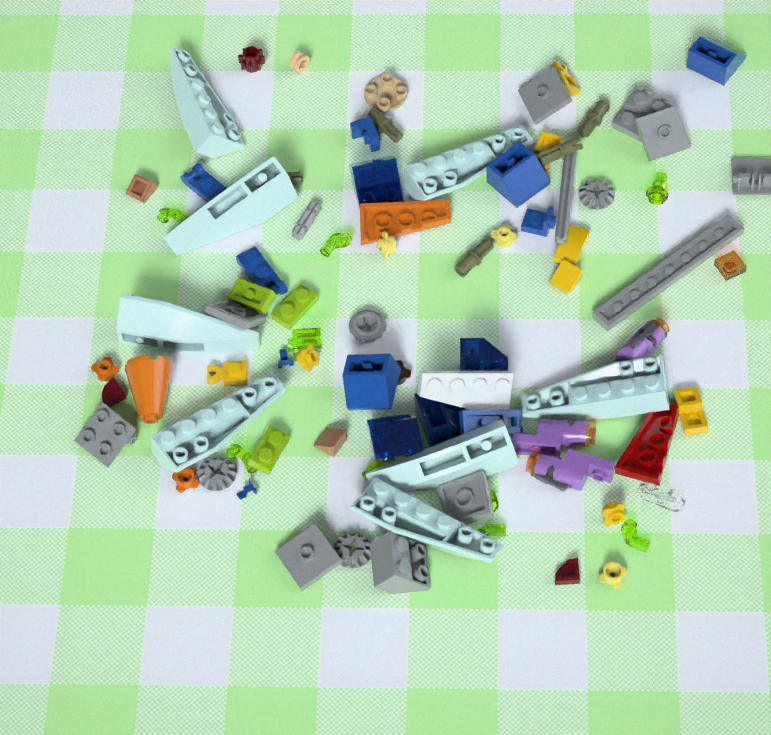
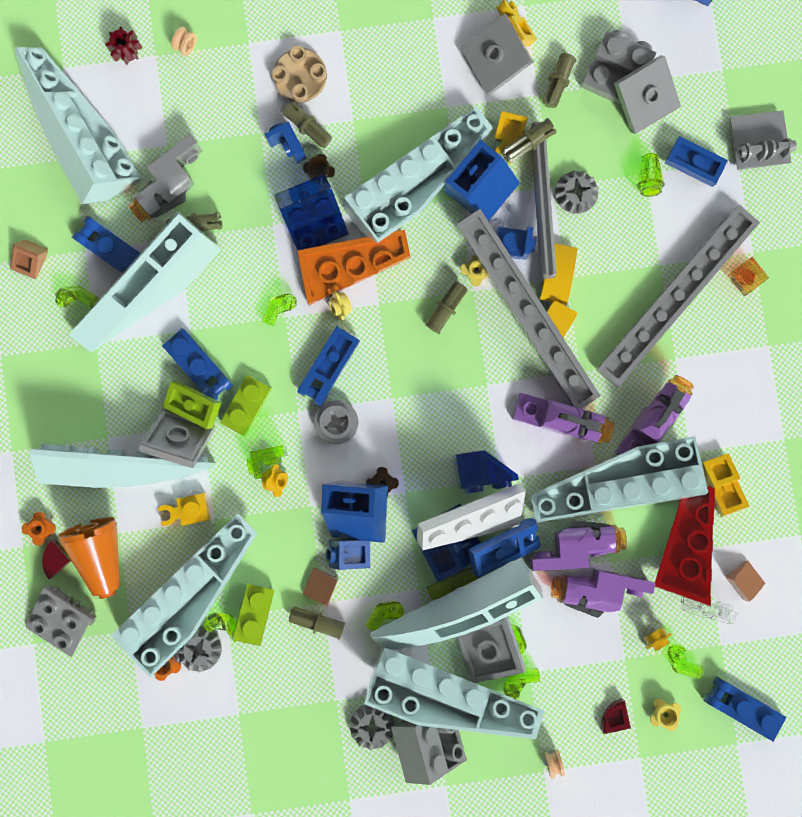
camera: 15 degrees left, 30 degrees up
(248, 488) = (237, 666): blue piece -> none
(267, 143) = (170, 183): none -> light grey plate
(284, 360) = (247, 479): blue piece -> none
(306, 220) = (237, 279): light grey axle -> none
(308, 556) = (324, 747): light grey plate -> none
(321, 465) = (316, 622): none -> olive axle
(356, 415) = (348, 554): none -> blue bracket
(369, 285) = (329, 365): none -> blue plate
(388, 150) = (319, 161): none -> dark brown plate
(394, 436) = (396, 586): clear blue slope -> none
(507, 595) = (554, 764): none -> light nougat bush
(541, 265) = (527, 309): none -> light grey plate
(557, 342) = (563, 419): none -> medium lavender plate
(684, 580) = (745, 709): none -> blue plate
(697, 183) = (696, 161): none -> blue plate
(698, 484) = (746, 581): none -> nougat slope

